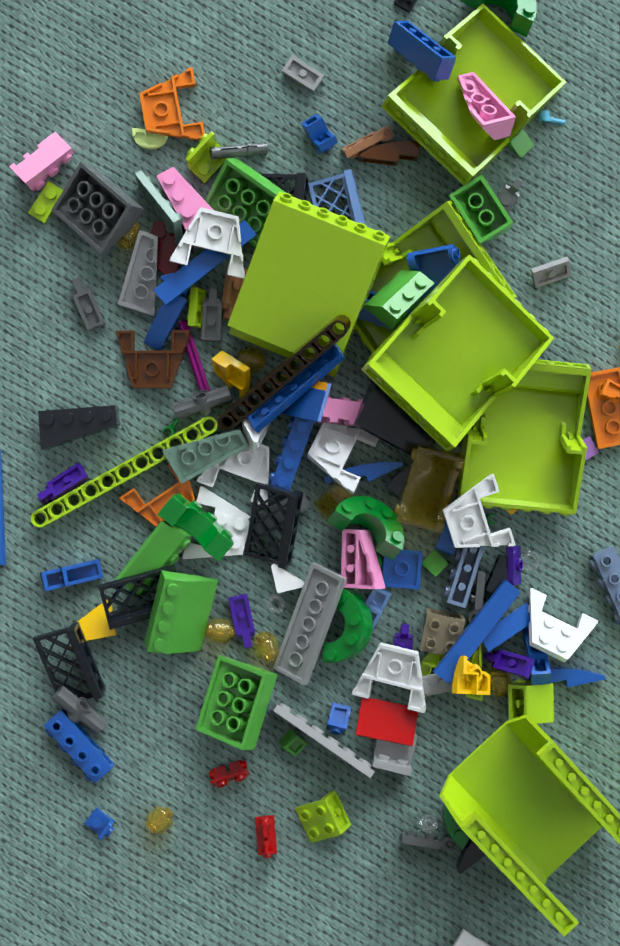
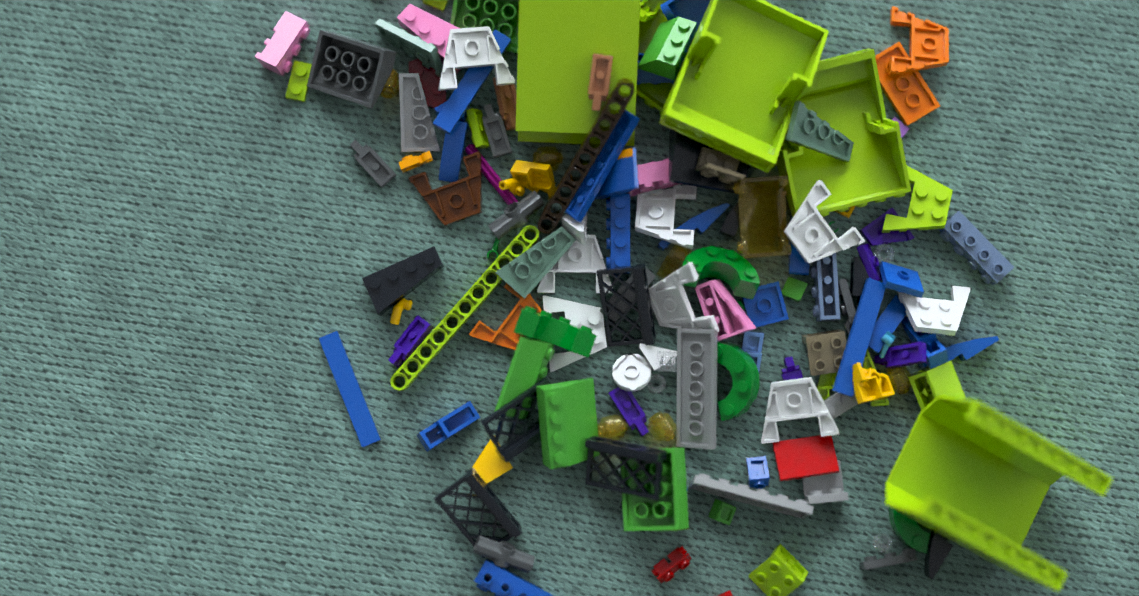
camera: 15 degrees left, 5 degrees down
(63, 450) = (398, 309): none -> yellow arm
(122, 317) = (410, 162): none -> light orange plate
(210, 374) = (513, 185): none -> yellow arm
(220, 658) = (629, 451): none -> black fence
(256, 586) = (631, 372): none -> white tile
(291, 589) = (666, 361): none -> clear tile
(315, 539) = (672, 304): none -> white wing
(320, 307) = (599, 79): none -> nougat hinge
(401, 424) = (719, 165): none -> dark tan bracket
(502, 642) = (888, 338): none -> medium azure hand
(507, 430) = (816, 134): none -> sand green wing
(536, 591) = (901, 279): none -> blue plate
(541, 539) = (874, 234): none -> dark purple wing
(587, 531) = (927, 205): none -> lime wing

